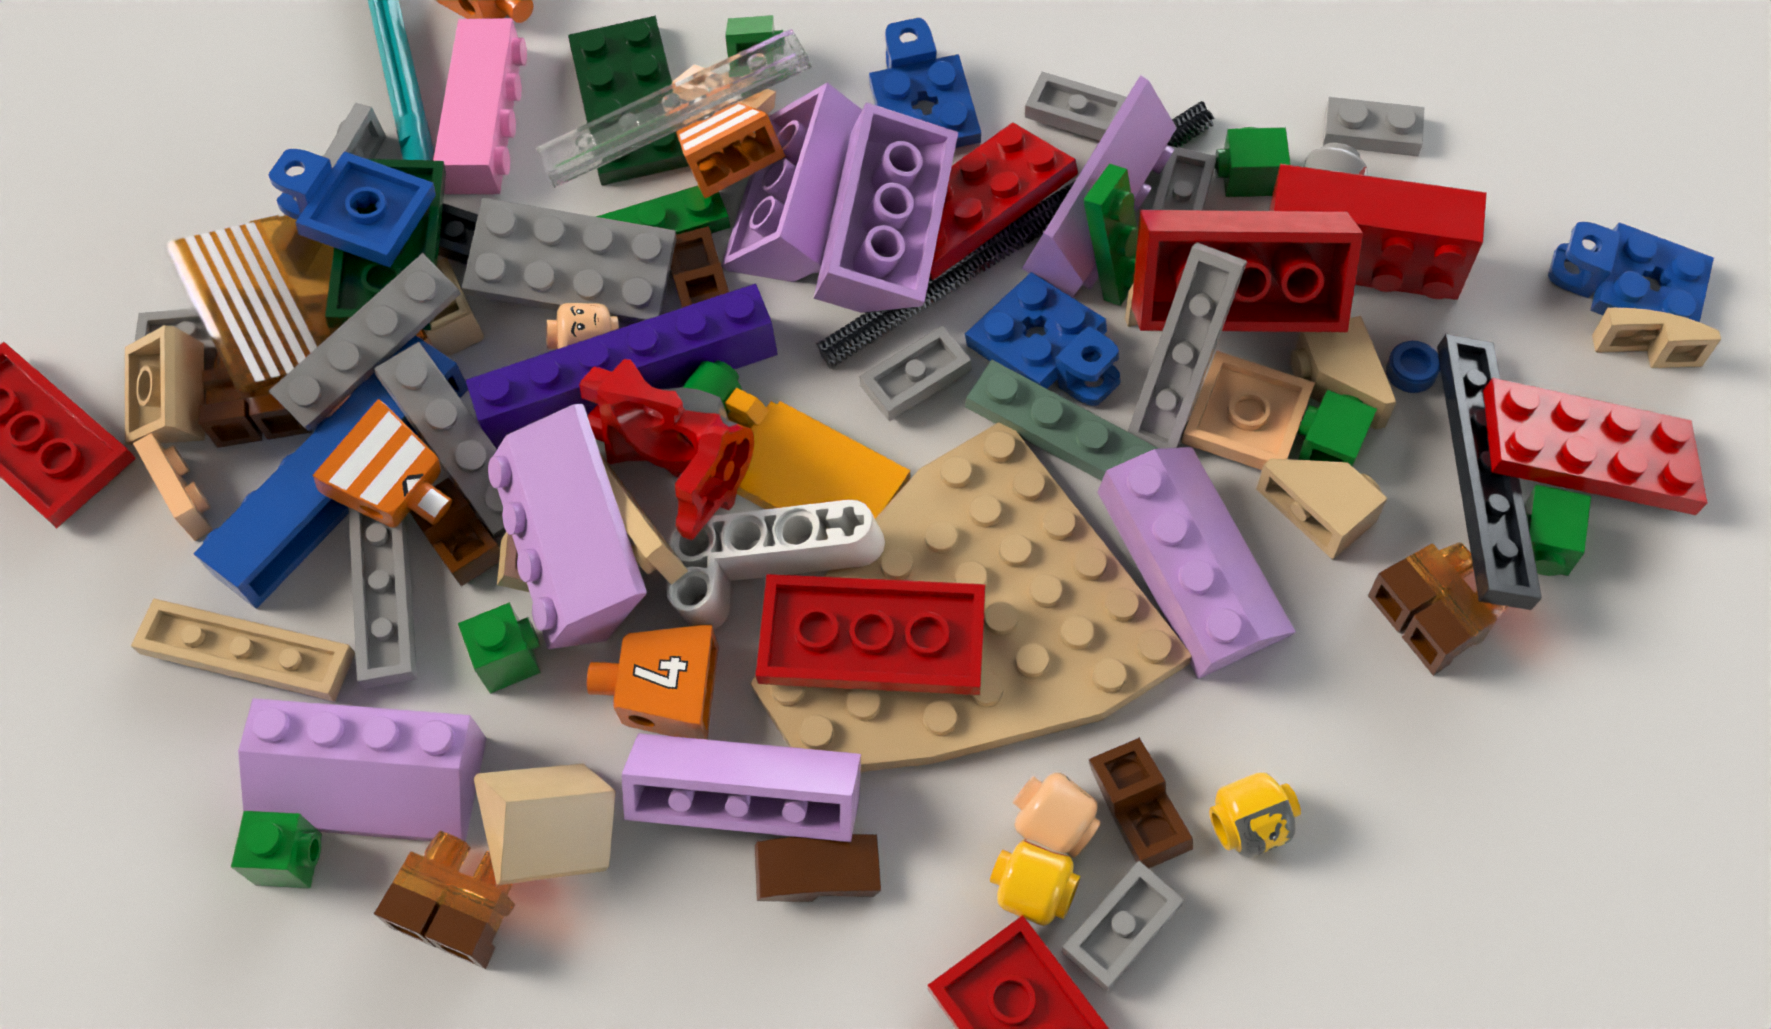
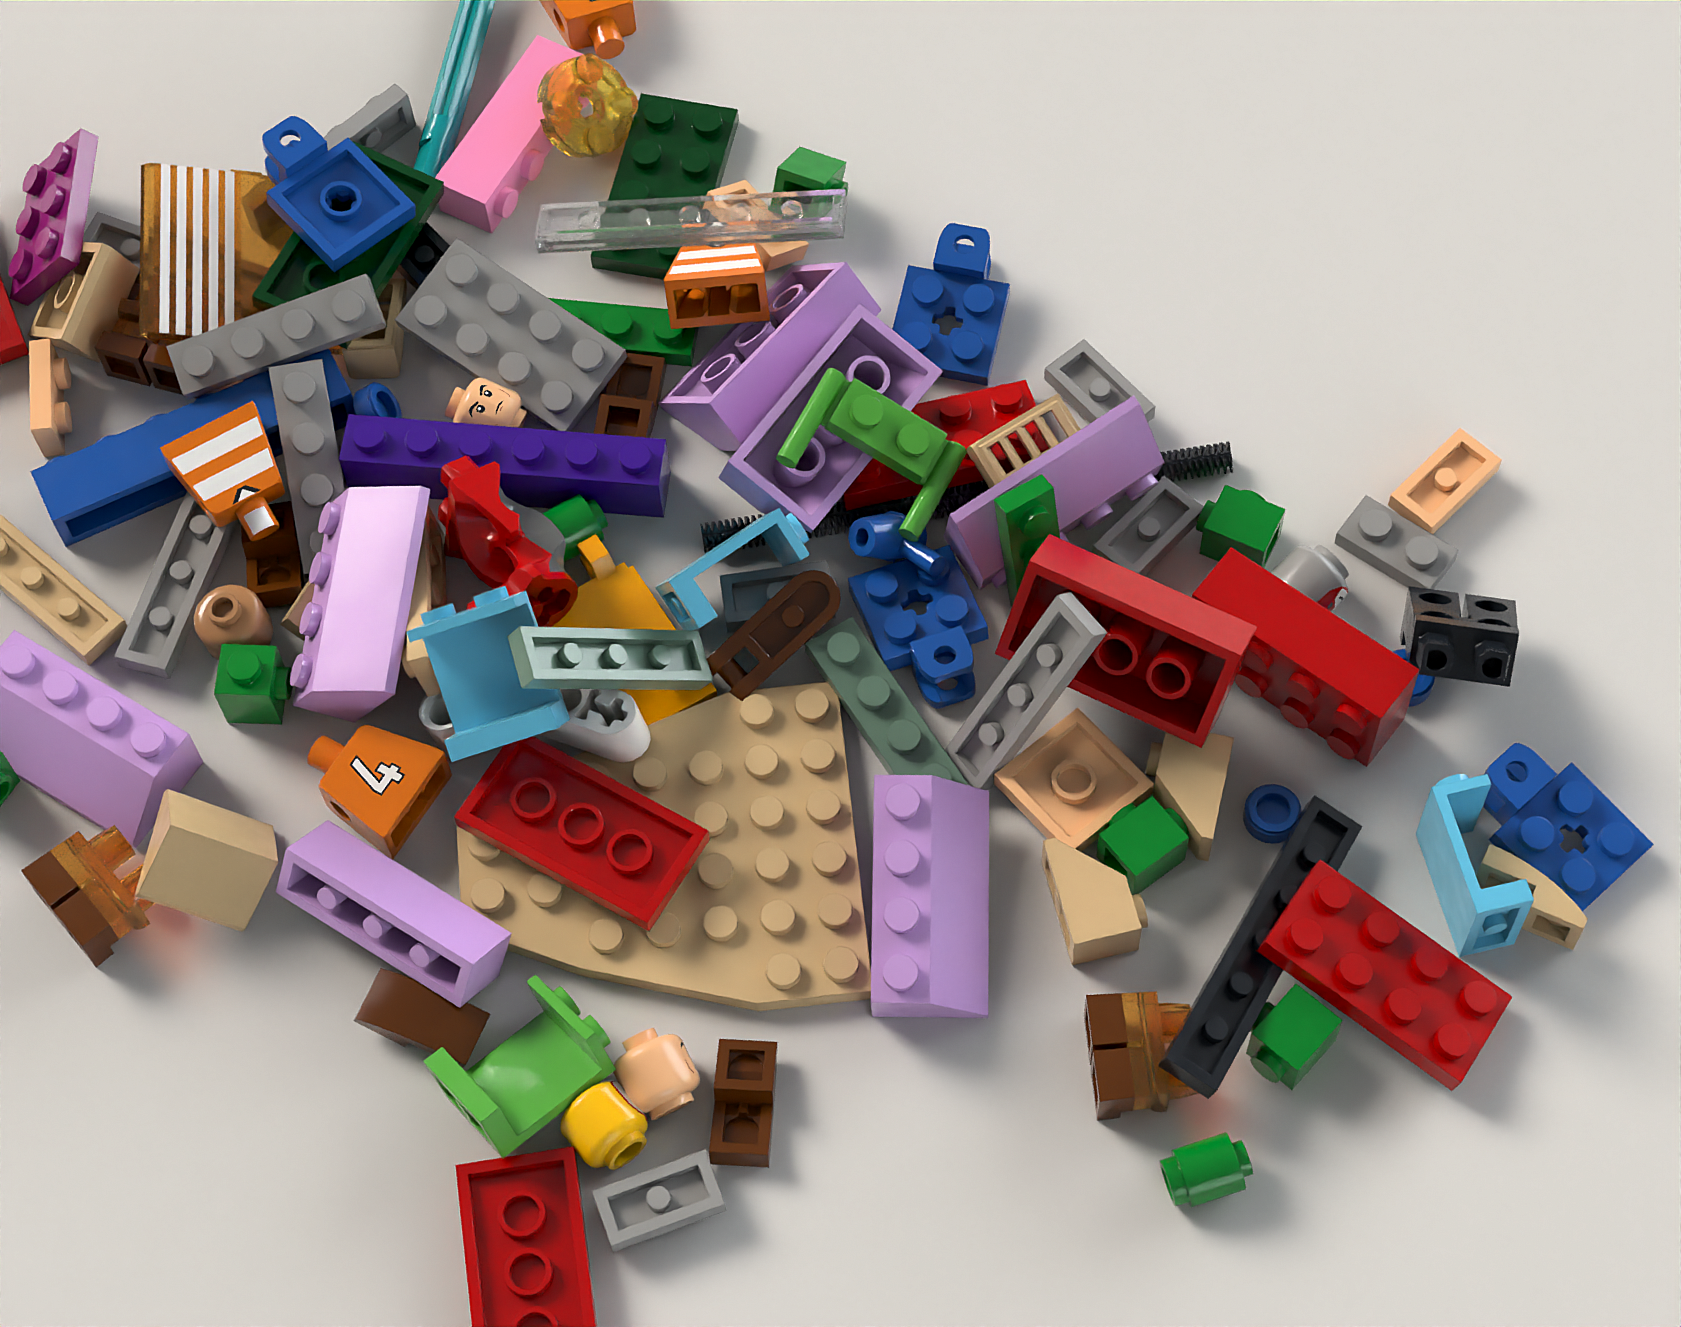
camera: 25 degrees right, 0 degrees up
(101, 332) = (53, 217): none -> magenta plate
(450, 597) = (232, 617): none -> medium nougat head
(477, 362) = (376, 401): none -> blue tile
(549, 48) = (611, 103): none -> clear yellow plate
(728, 533) = (480, 674): none -> medium azure panel
(820, 477) = (609, 658): none -> sand green plate
(846, 398) = (683, 595): none -> medium azure panel
(938, 398) = (777, 631): none -> reddish brown plate
(942, 197) = (884, 433): none -> bright green plate
(945, 868) = (529, 1074): none -> bright green panel
(991, 280) = (879, 539): none -> blue piece
(1037, 190) = (985, 459): none -> tan slope
(1254, 814) = (836, 1161): yellow head -> none
(1381, 61) = (1444, 481): none -> light nougat plate
(1486, 160) = (1458, 647): none -> black hips
(1554, 672) = (1206, 1170): none -> green brick
(1598, 340) = (1475, 916): none -> medium azure panel

